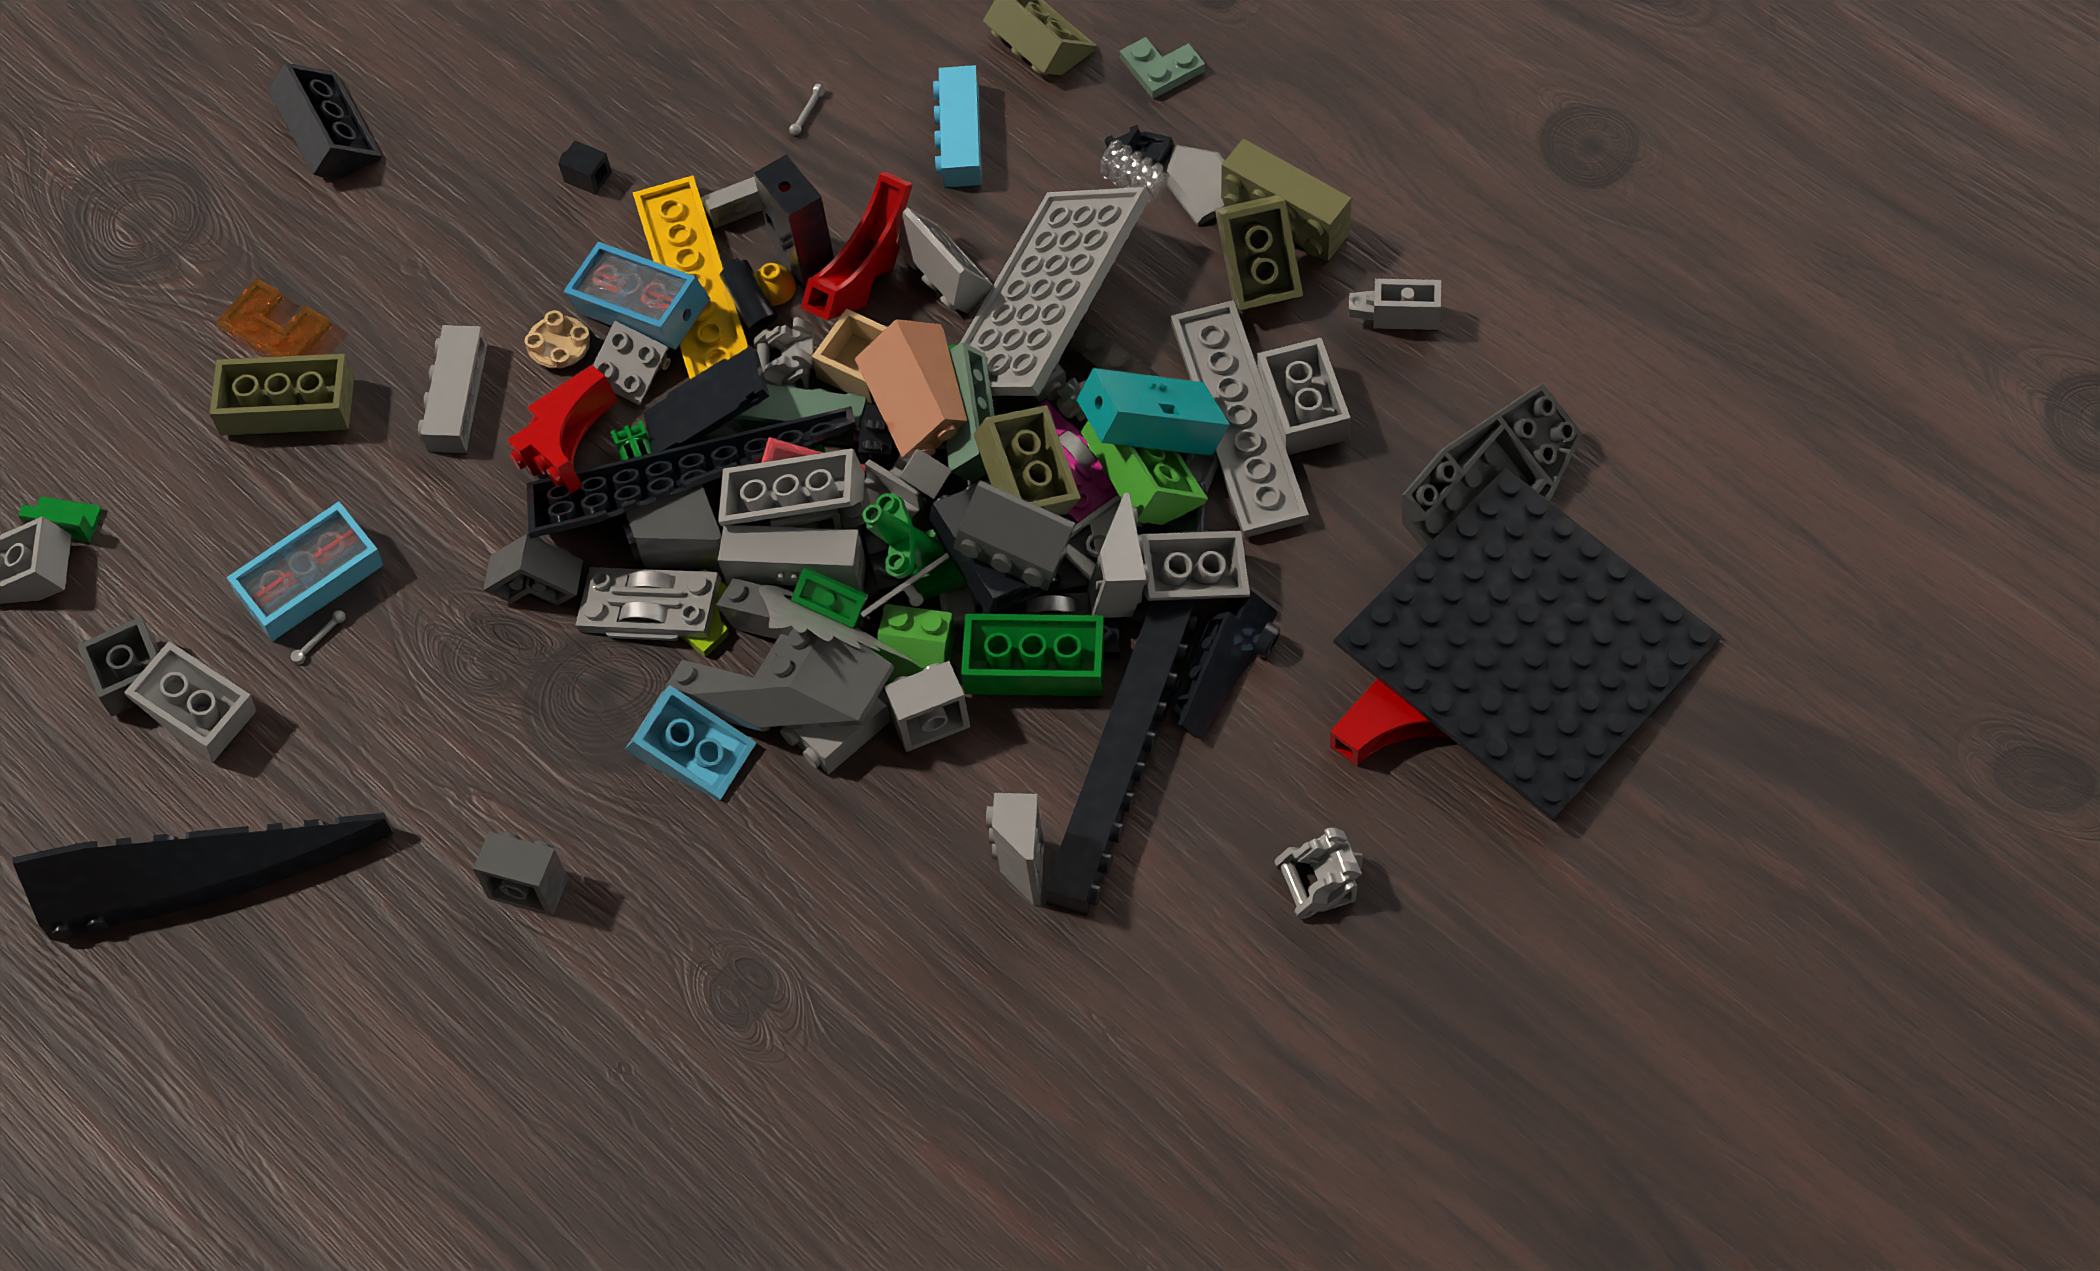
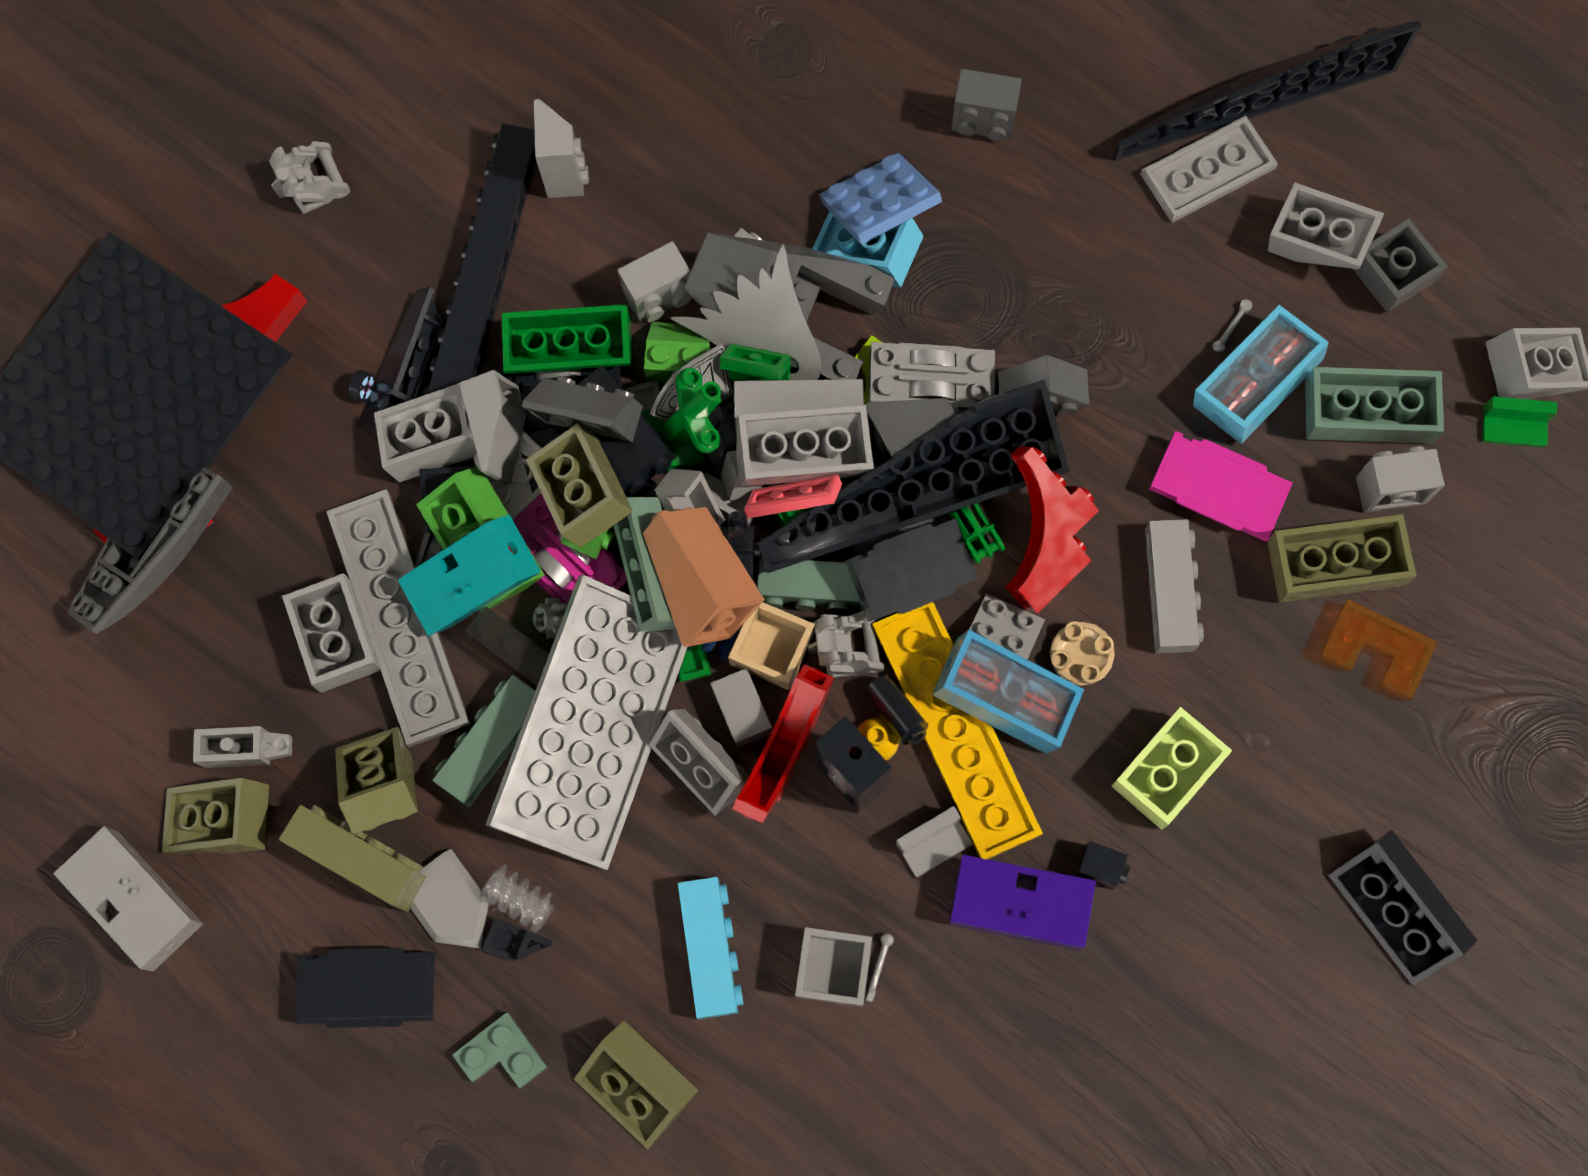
camera: 170 degrees right, 15 degrees up
(198, 529) = (1374, 405): none -> sand green brick
(201, 454) = (1399, 479): none -> light grey brick
(309, 792) = (1208, 169): none -> light grey tile
(379, 473) = (1221, 485): none -> dark pink piece
(499, 231) = (1171, 768): none -> yellowish green brick
(663, 779) = (880, 198): none -> medium blue plate
(665, 140) = (1022, 902): none -> dark purple brick
(845, 98) = (833, 967): none -> light grey piece
(896, 300) = (741, 708): none -> light grey panel
(1153, 297) = (487, 744): none -> sand green brick
(1282, 112) = (365, 988): none -> black piece
(1426, 249) = (216, 817): none -> olive slope
(1509, 192) = (128, 899): none -> light grey brick

